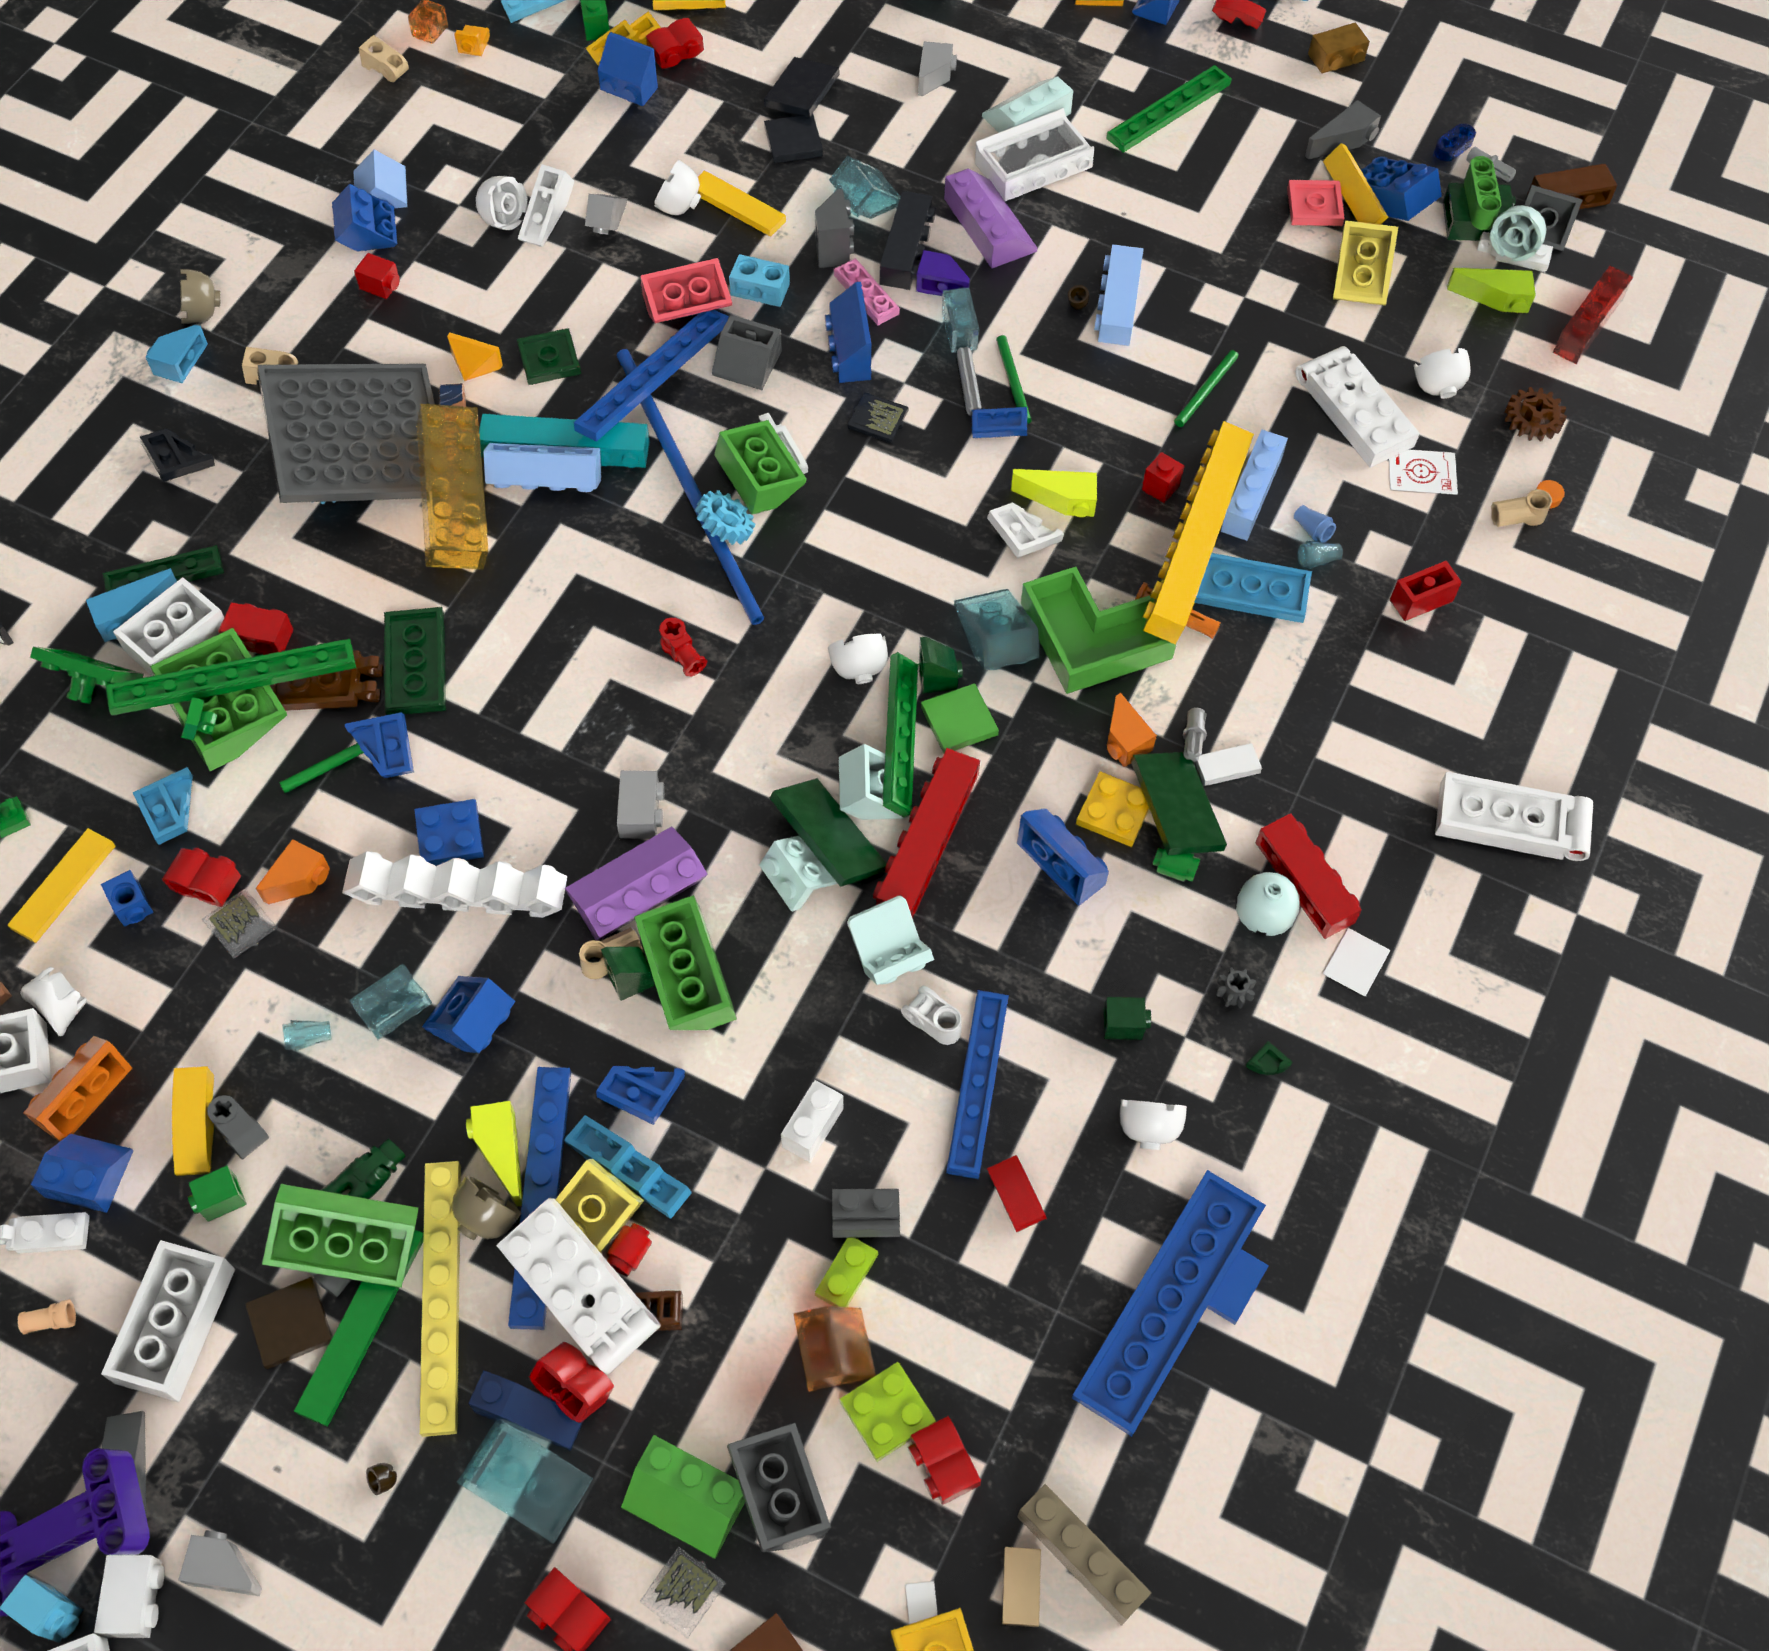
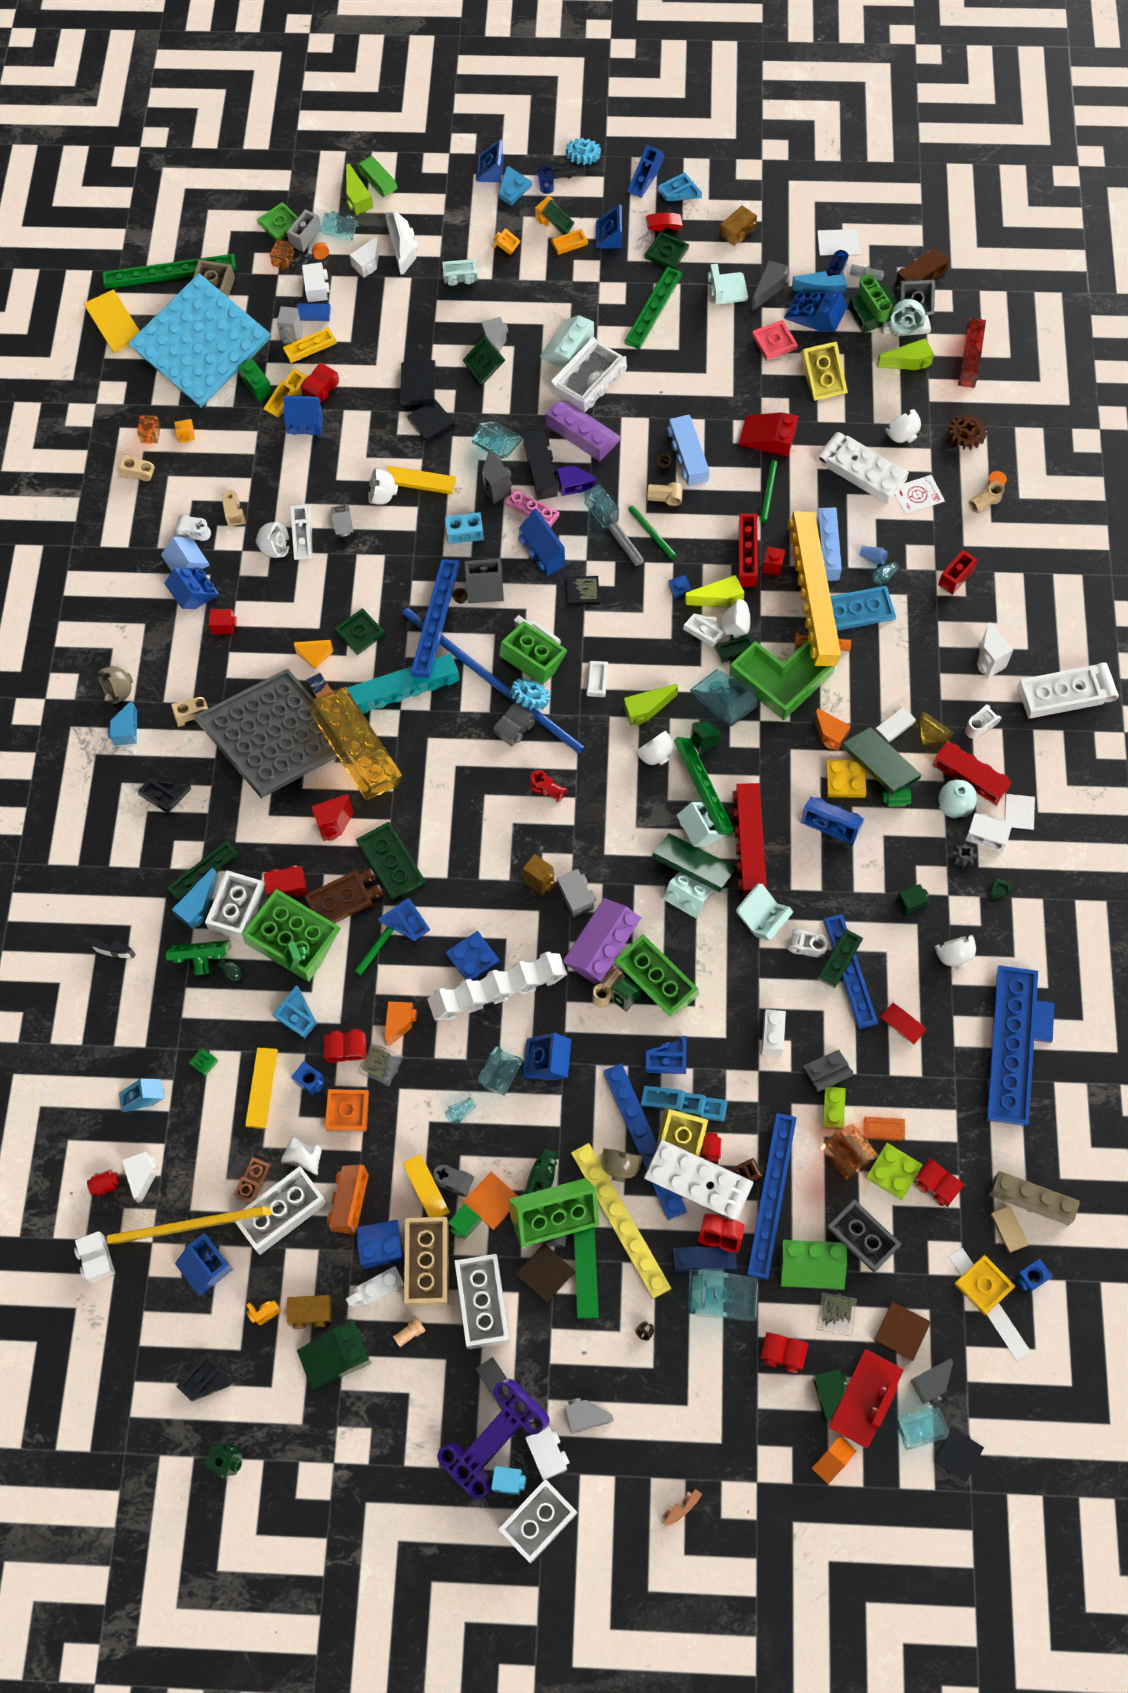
camera: 20 degrees left, 5 degrees up
(118, 722) = (230, 970): none -> clear green cylinder
(126, 1226) = (426, 1262): none -> tan brick
(153, 965) = (347, 1110): none -> orange plate
(230, 676) = (295, 920): green tile -> none
(265, 1172) = (491, 1200): none -> orange tile
(366, 568) = (333, 816): none -> red slope
(410, 153) = (192, 528): none -> white piece
(473, 148) = (231, 504): none -> tan leg
(496, 1138) = (605, 1123): neon yellow slope -> none
(542, 466) = (401, 706): light blue brick -> none
(597, 756) = (538, 875): none -> pearl gold brick
(678, 1364) = (771, 1196): none -> blue plate
(682, 549) = (514, 724): none -> dark grey brick
(685, 290) = (426, 556): coral slope -> none
(704, 360) = (460, 595): none -> dark brown hinge
(832, 537) = (597, 679): none -> white tile
(881, 595) = (645, 705): none -> lime slope
(902, 88) = (483, 360): none -> dark green tile
(906, 1338) = (884, 1128): none -> clear orange tile
(959, 718) = (730, 761): bright green tile -> none
(970, 1056) = (840, 958): none -> dark green tile
(999, 422) = (659, 564): blue plate -> none
(1012, 459) = (679, 586): none -> blue plate
(1038, 567) = (733, 648): none -> dark green tile
(1063, 340) = (670, 494): none -> tan piece
(1068, 532) = (736, 619): none -> white hair
(1132, 448) = (747, 550): none -> red brick
(1194, 733) = (869, 714): light grey axle -> none
(1225, 47) = (666, 251): none -> dark green tile
(1248, 314) = (769, 432): none -> red slope
(1278, 794) = (932, 731): none -> clear yellow slope
(1281, 116) = (727, 287): none -> light aqua bracket
(1291, 969) = (989, 832): none -> white brick
(1354, 186) = (794, 321): yellow tile -> none
(1364, 810) = (984, 720): none -> white piece
(1416, 151) = (819, 283): none -> dark azure slope
(1423, 719) = (993, 652): none -> white slope
(1482, 117) = (835, 240): none -> white sticker

